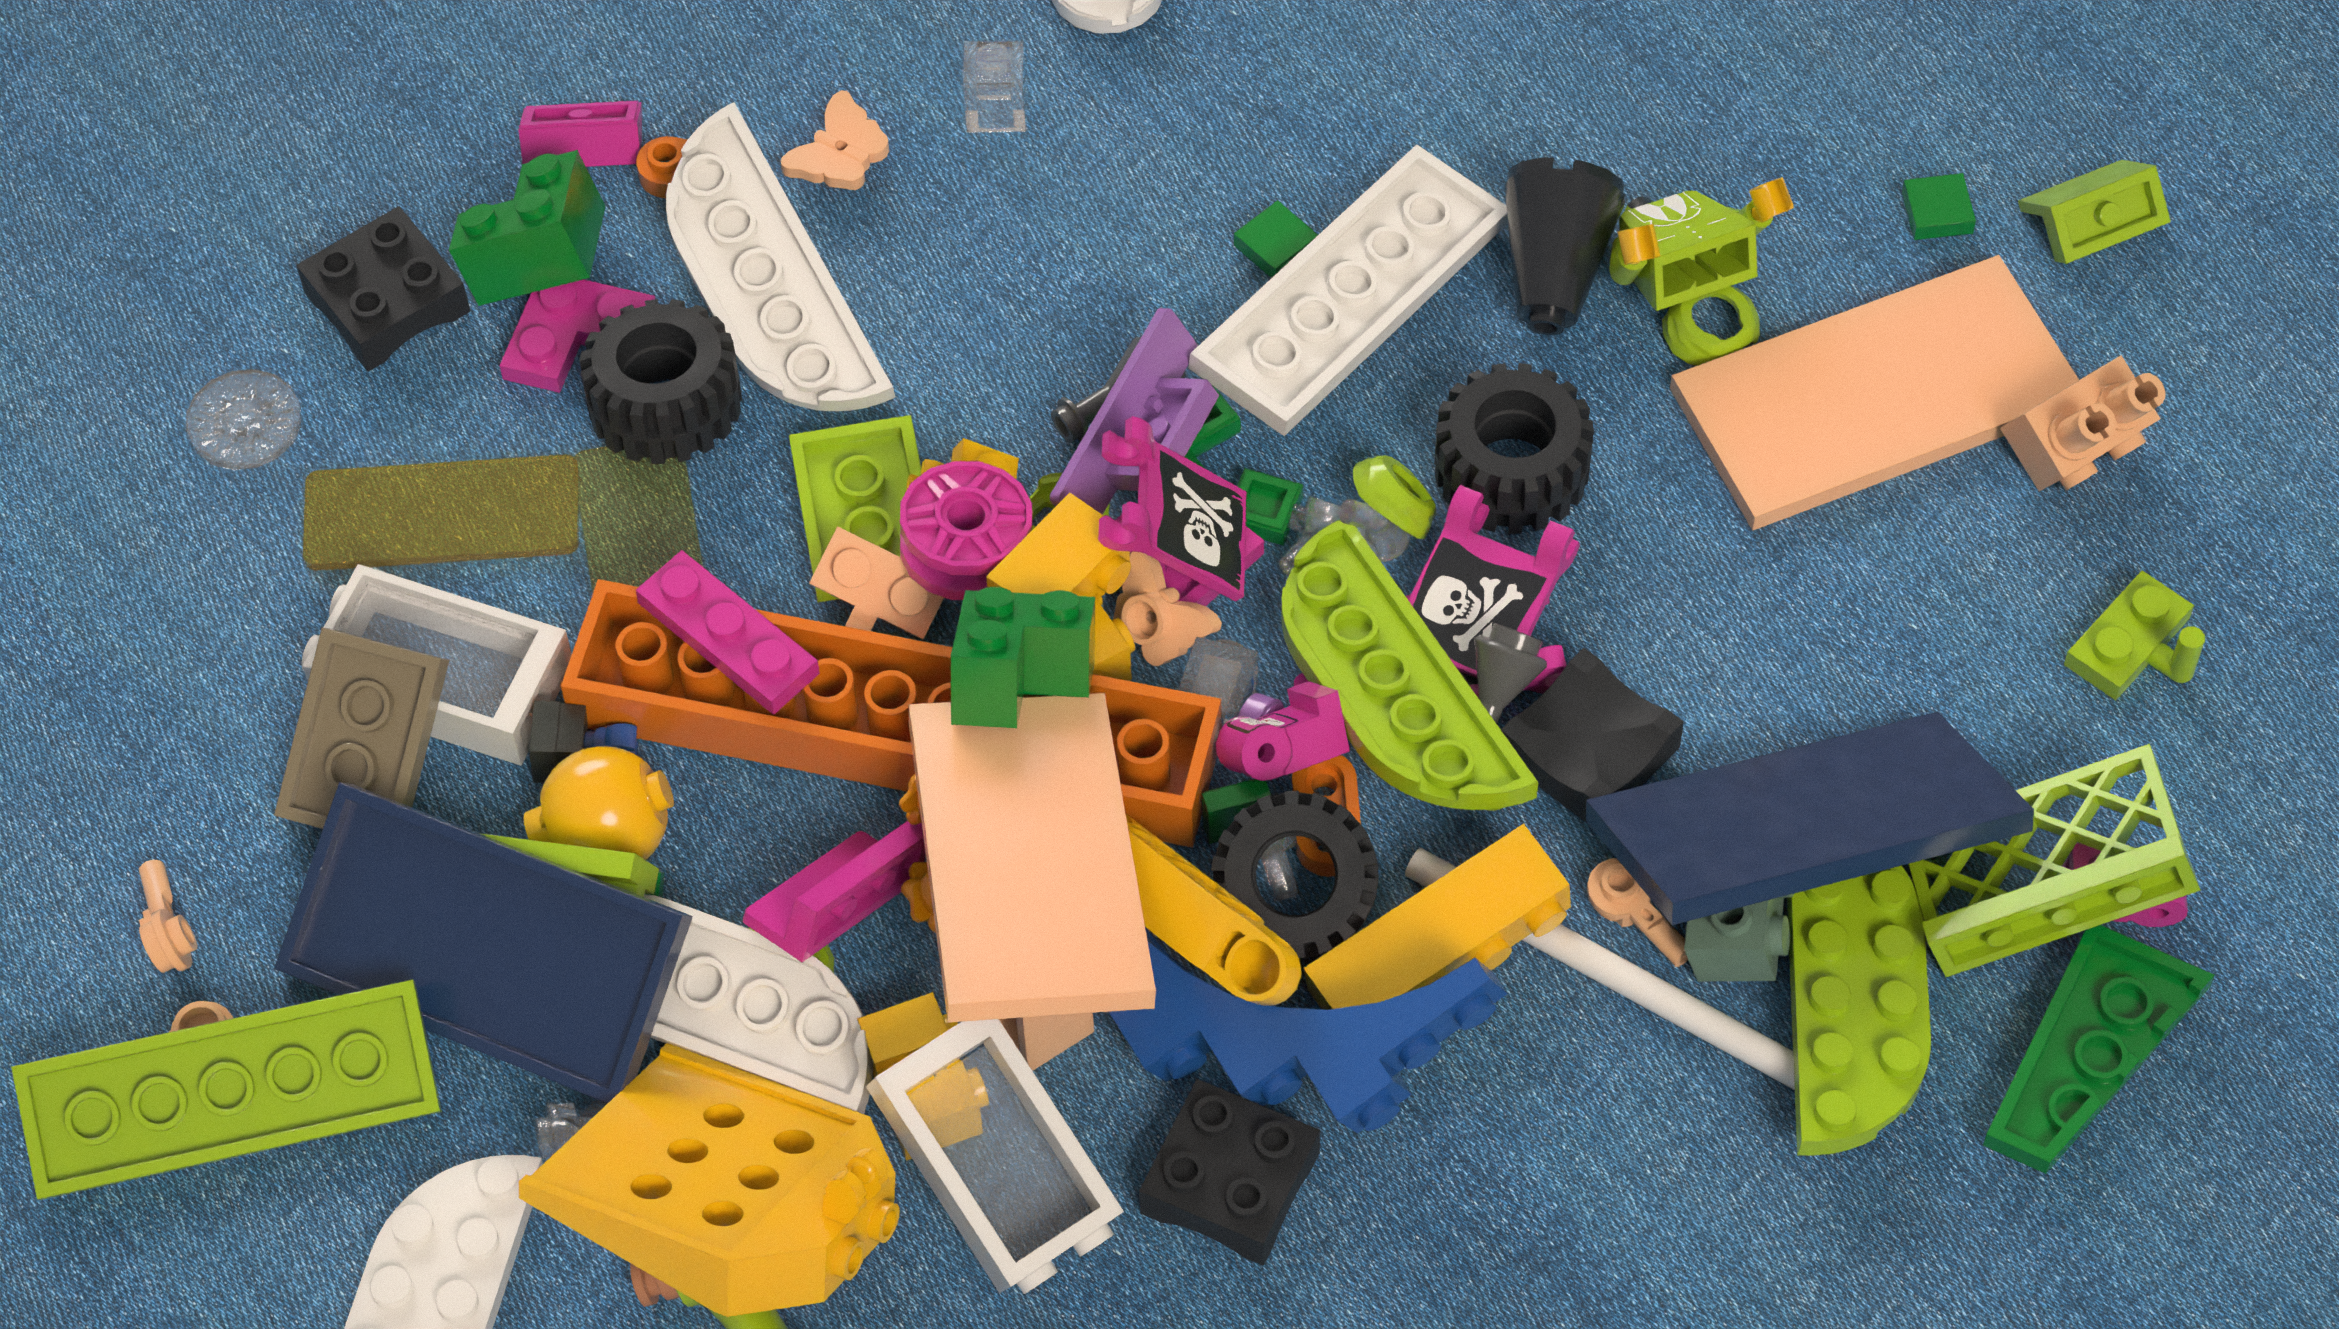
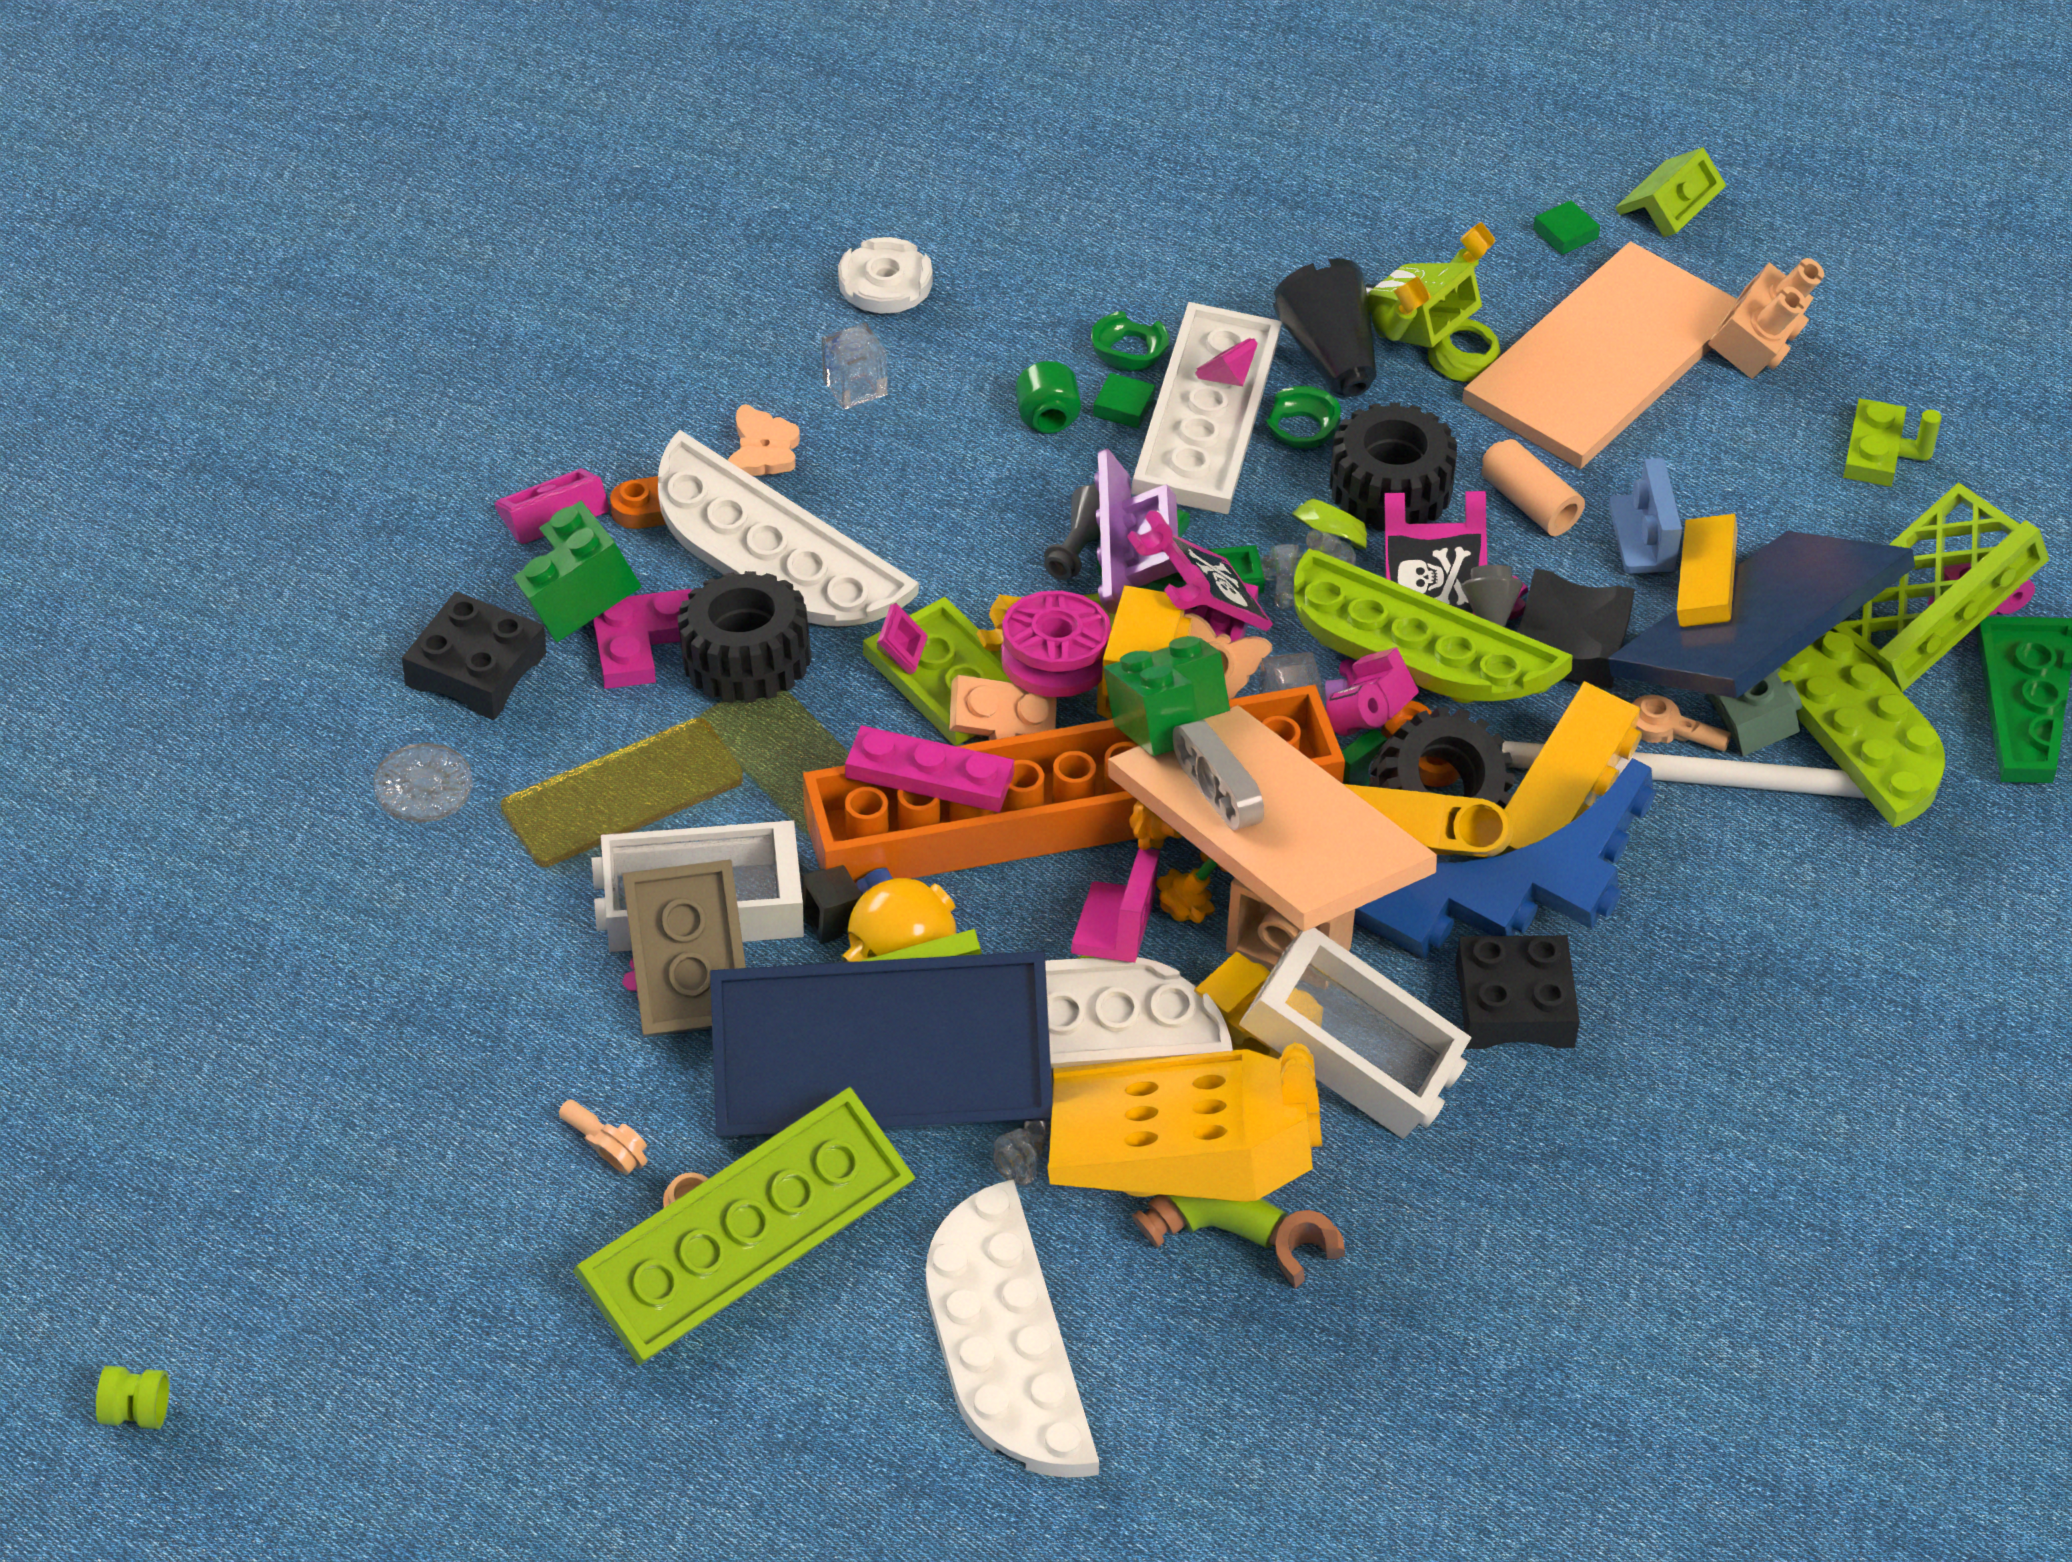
camera: 30 degrees left, 10 degrees down
(818, 453) = (901, 639): none -> dark pink slope
(986, 784) = (1218, 775): none -> light grey beam
(1187, 205) = (1048, 396): none -> green head
(1321, 144) = (1114, 328): none -> green piece
(1398, 247) = (1230, 365): none -> dark pink slope
(1470, 317) = (1305, 402): none -> green piece
(1666, 536) = (1532, 487): none -> light nougat brick
(1766, 637) = (1647, 522): none -> medium blue bracket
(1787, 731) = (1707, 570): none -> yellow tile

